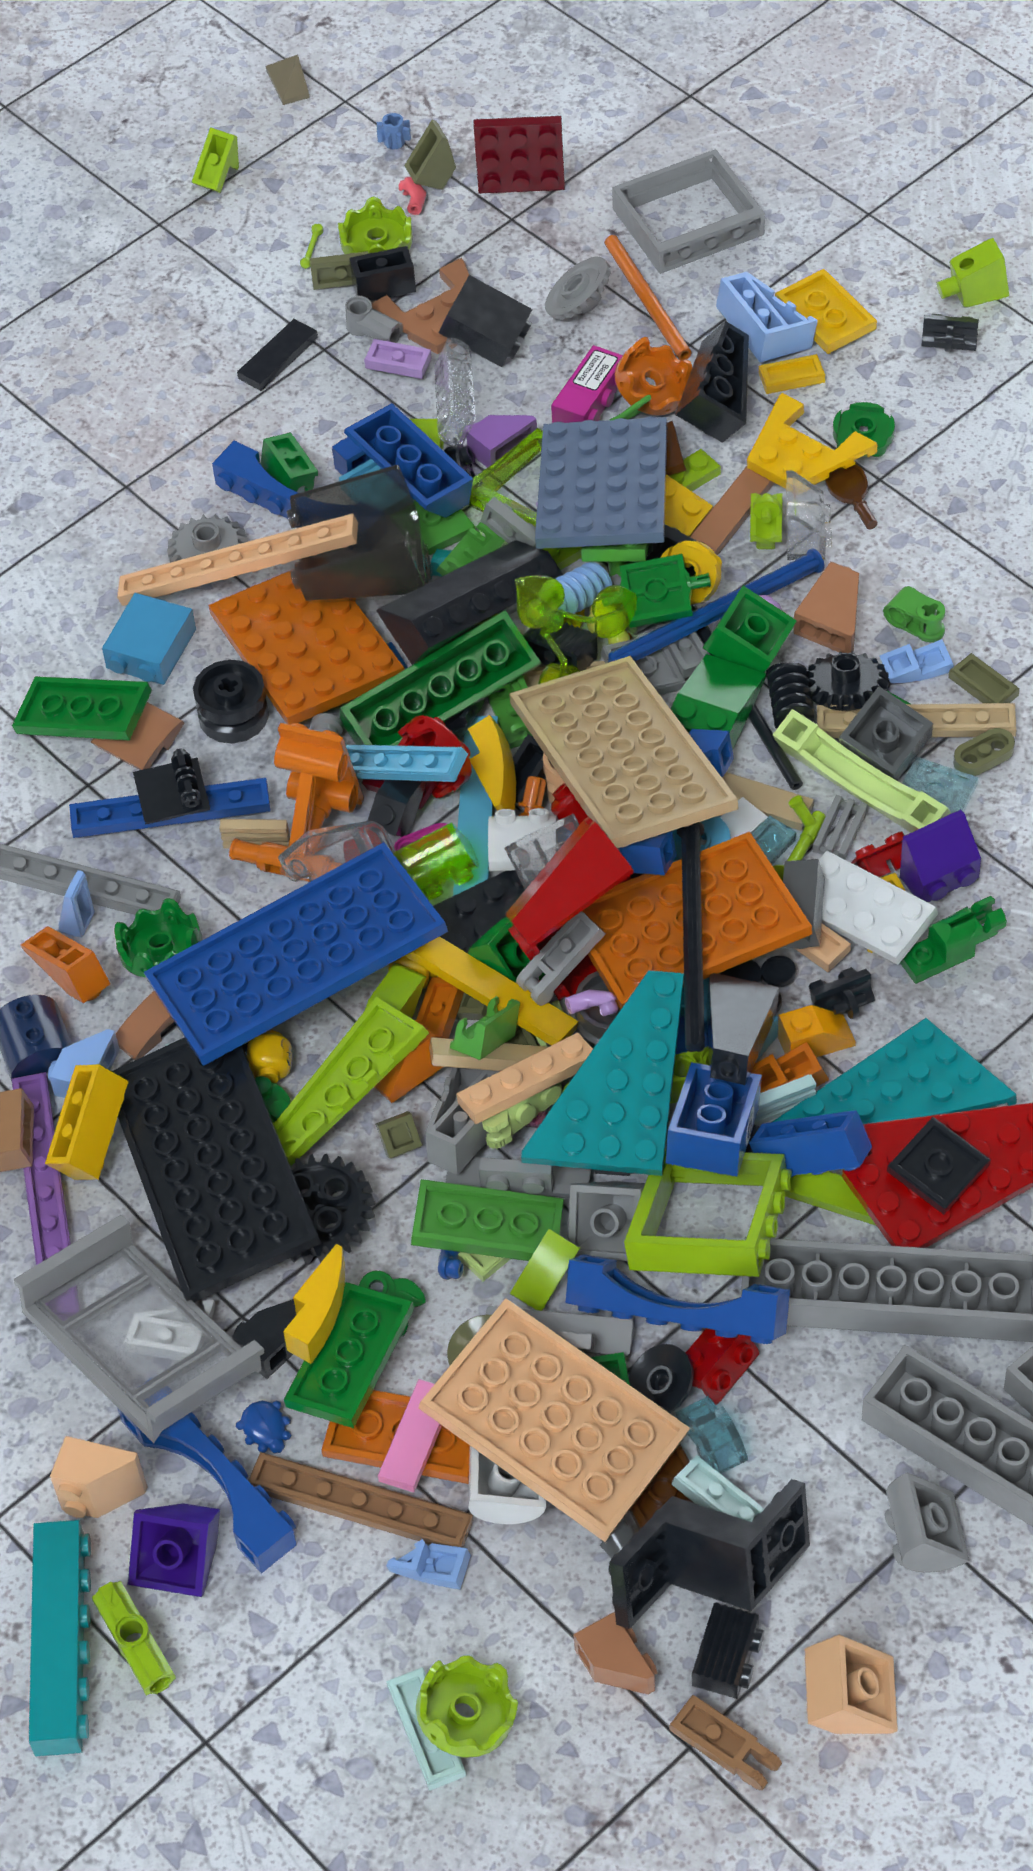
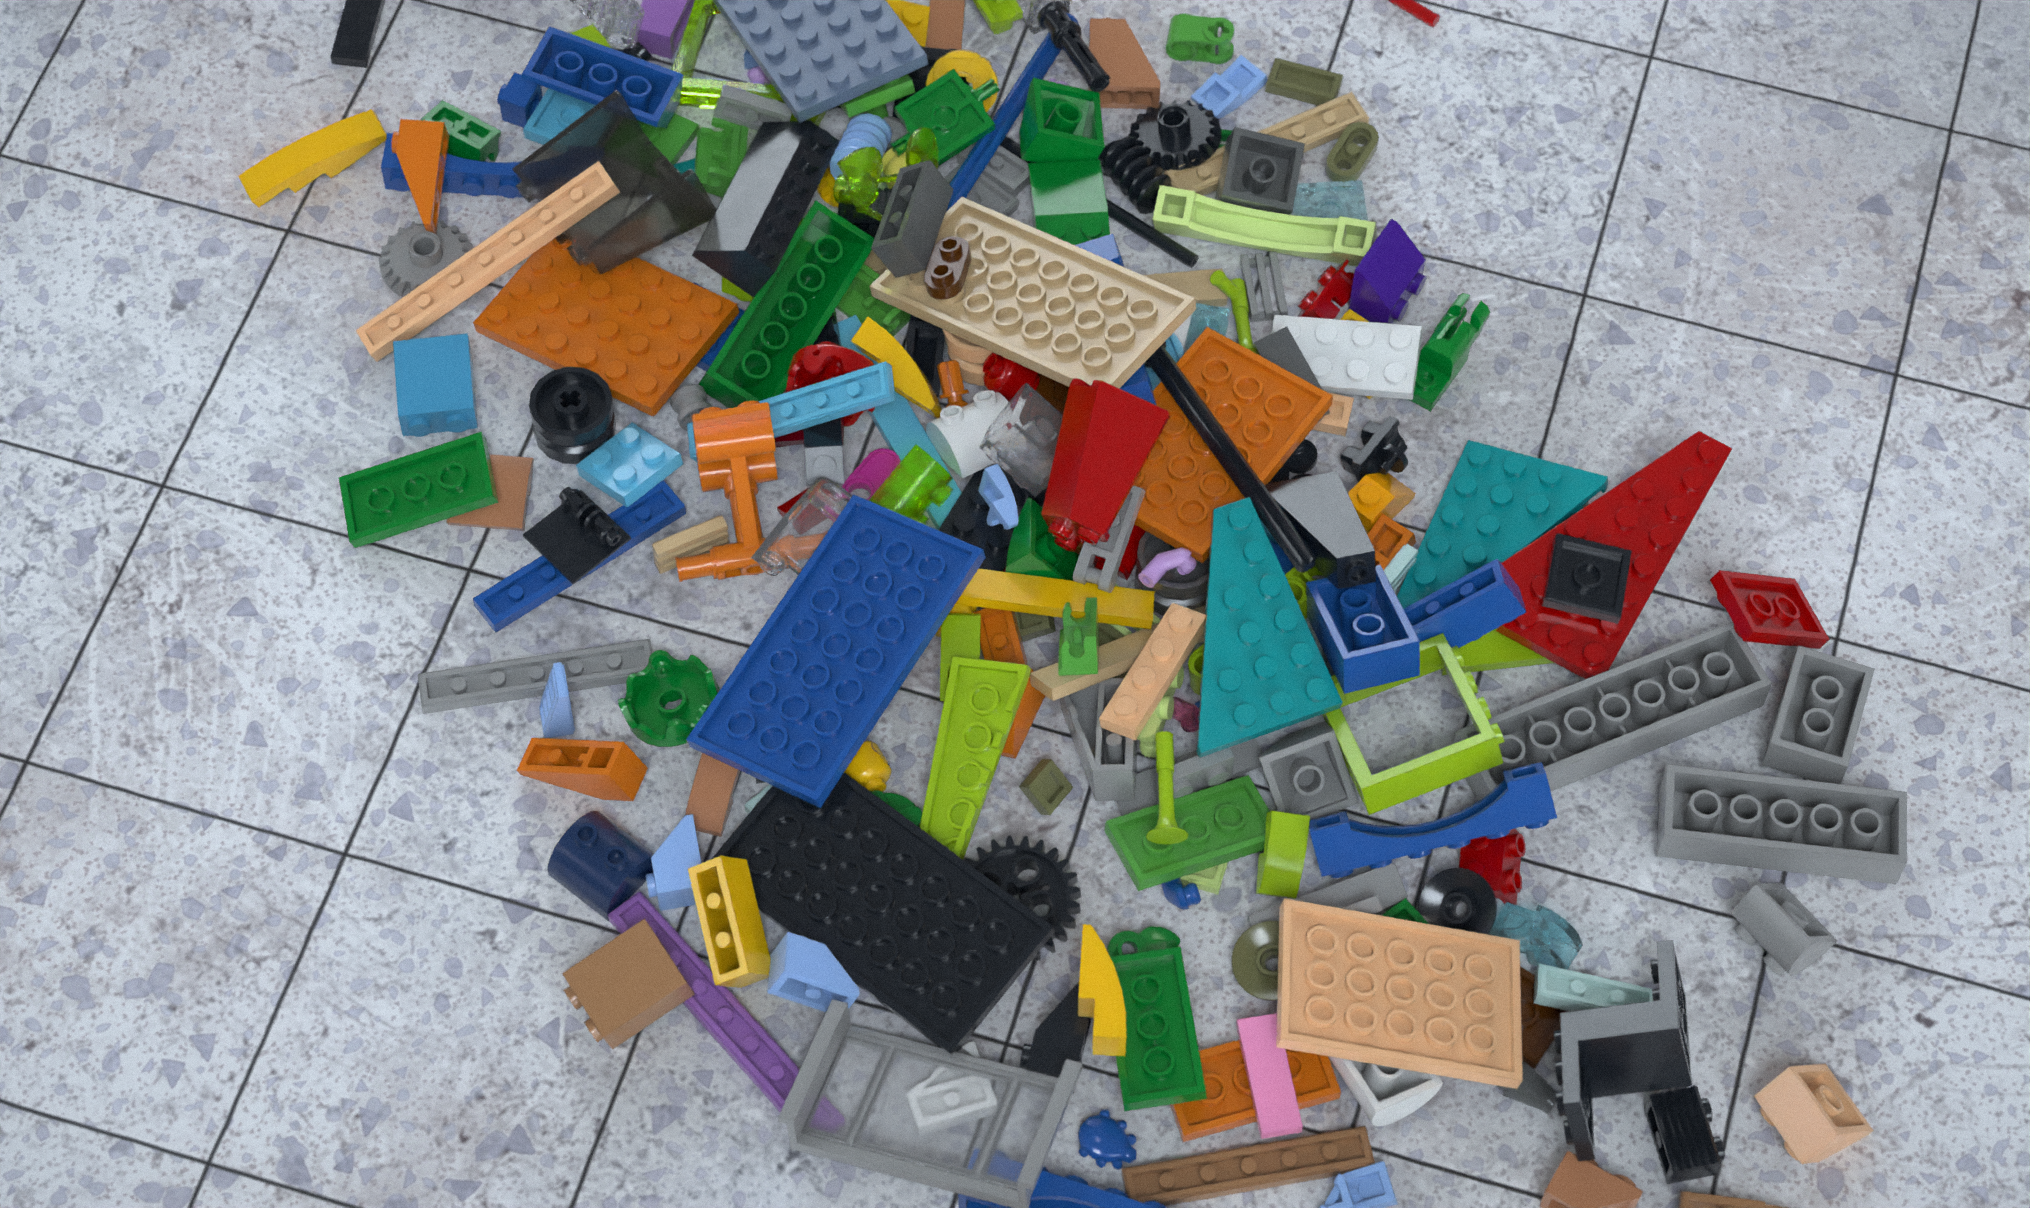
camera: 35 degrees left, 5 degrees up
(120, 1189) = (809, 974): none -> light blue slope
(181, 437) = (320, 152): none -> yellow slope
(237, 472) = (423, 155): none -> orange slope
(247, 755) = (629, 464): none -> medium azure plate
(457, 1204) = (1167, 828): none -> lime piece
(495, 904) = (999, 497): none -> light blue slope
(569, 653) = (912, 219): none -> dark grey brick
(573, 701) = (947, 267): none -> reddish brown plate
(800, 567) = (1067, 36): none -> black pin

